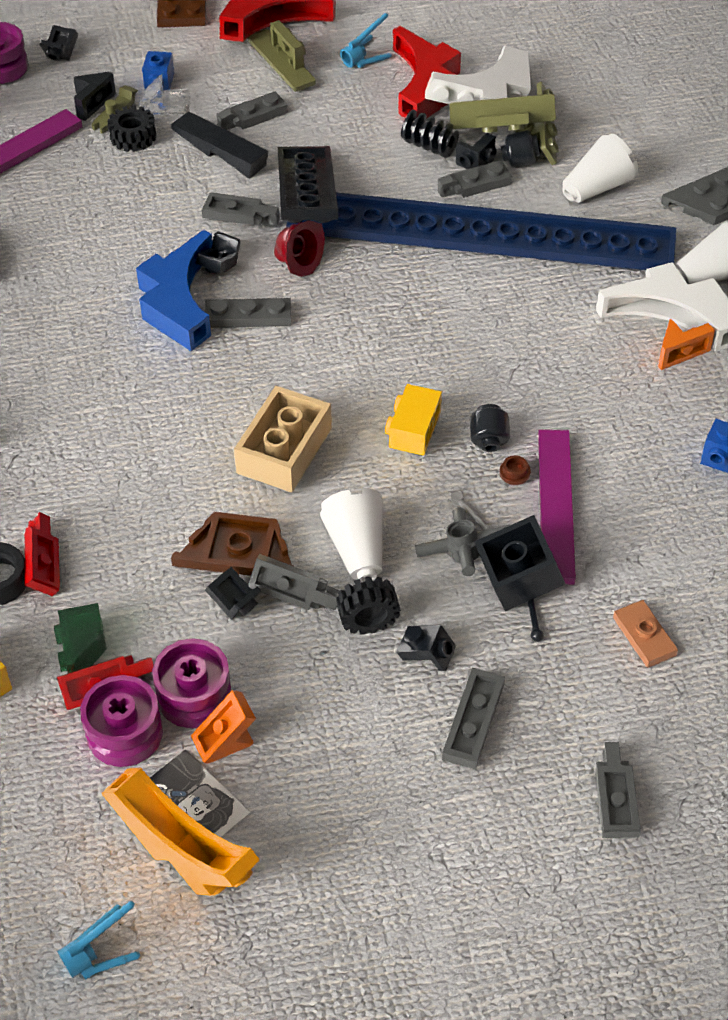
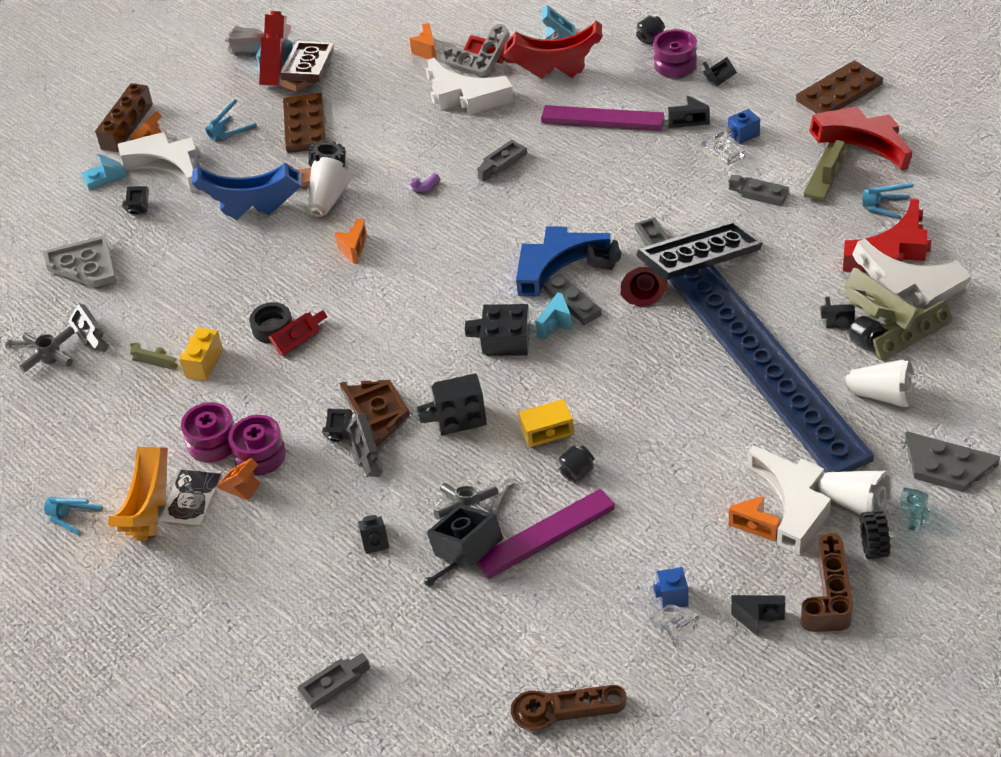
camera: 60 degrees right, 5 degrees down
(79, 682) = (237, 407): red hinge -> none
(81, 636) = (252, 384): clear green slope -> none
(125, 98) = (688, 132): olive piece -> none
(132, 128) = (678, 149): black tyre -> none
(212, 139) = (708, 194): black slope -> none
(241, 380) = (502, 329): none -> black hinge
(266, 333) = (554, 314): none -> medium azure slope
(283, 438) = (484, 359): tan brick -> none
(324, 467) = (455, 405): none -> black hinge
(356, 530) = (426, 449): white cone -> none
(368, 605) = (372, 485): black tyre -> none
(428, 134) = (828, 279): black piece -> none
(473, 718) = (336, 583): dark grey plate -> none
(475, 180) = (813, 329): dark grey hinge -> none
(515, 470) = (554, 496): copper plate -> none
(645, 633) = (474, 633): nougat plate -> none

